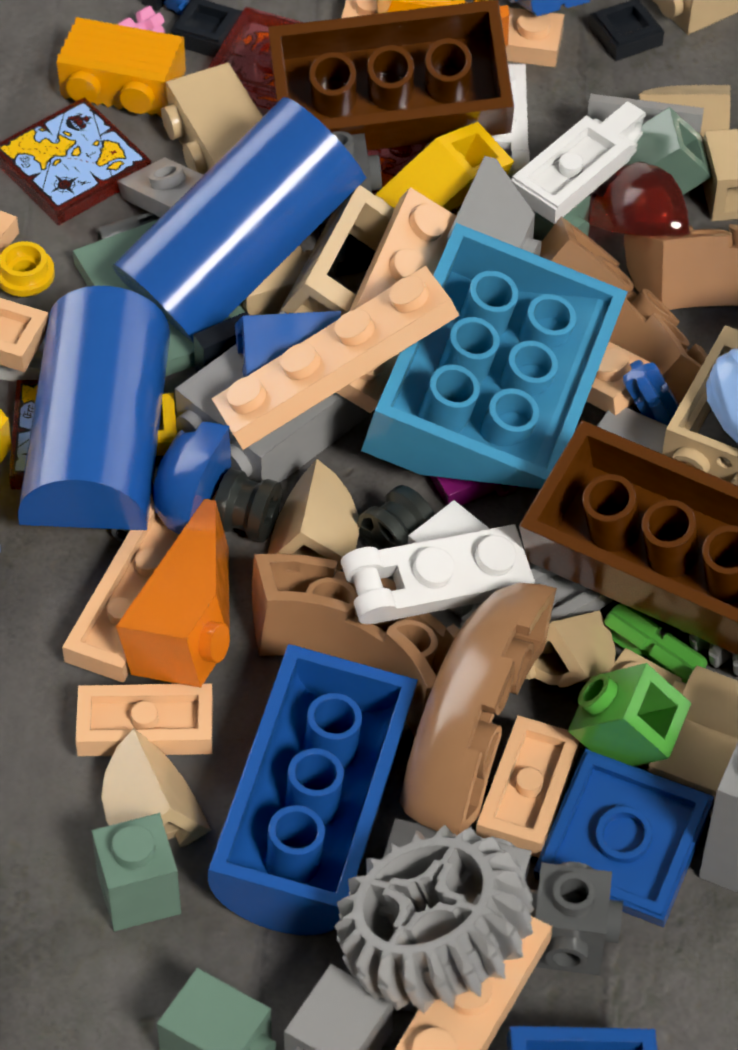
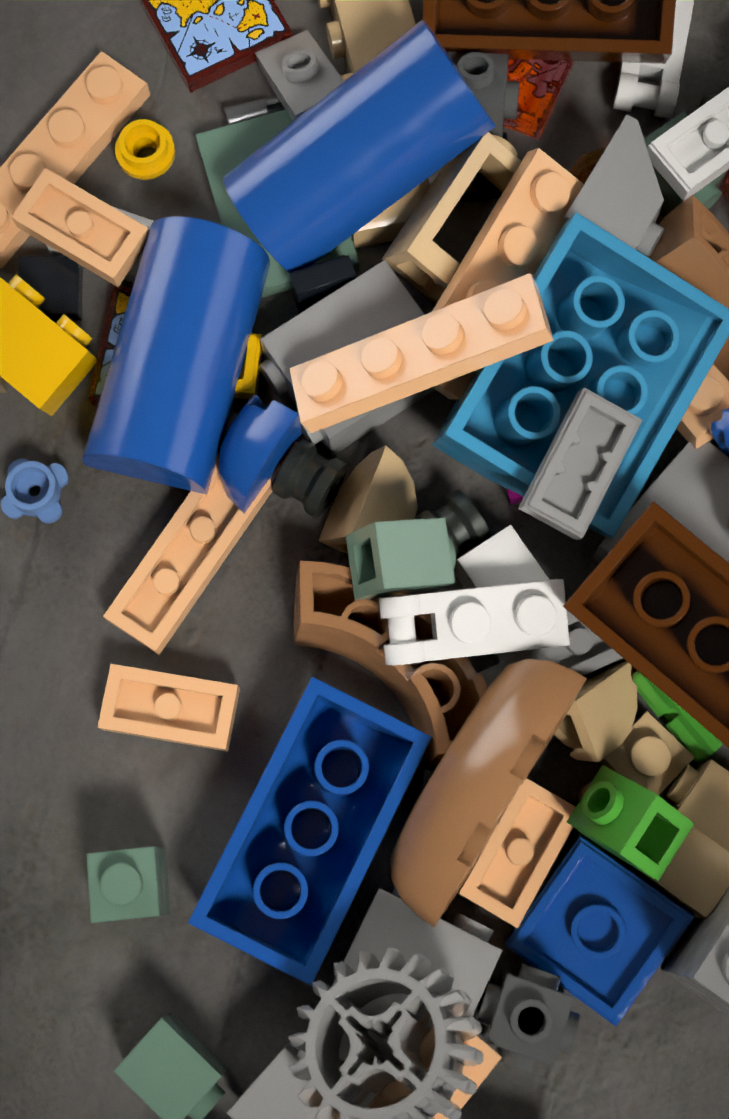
camera: 15 degrees right, 25 degrees up
(145, 783) = (158, 795): tan brick -> none
(182, 613) = (225, 601): orange slope -> none
(271, 335) = (373, 305): blue brick -> none
(348, 519) = (400, 558): none -> sand green brick
(447, 167) = (583, 114): yellow slope -> none
(507, 415) = (580, 464): none -> light grey plate

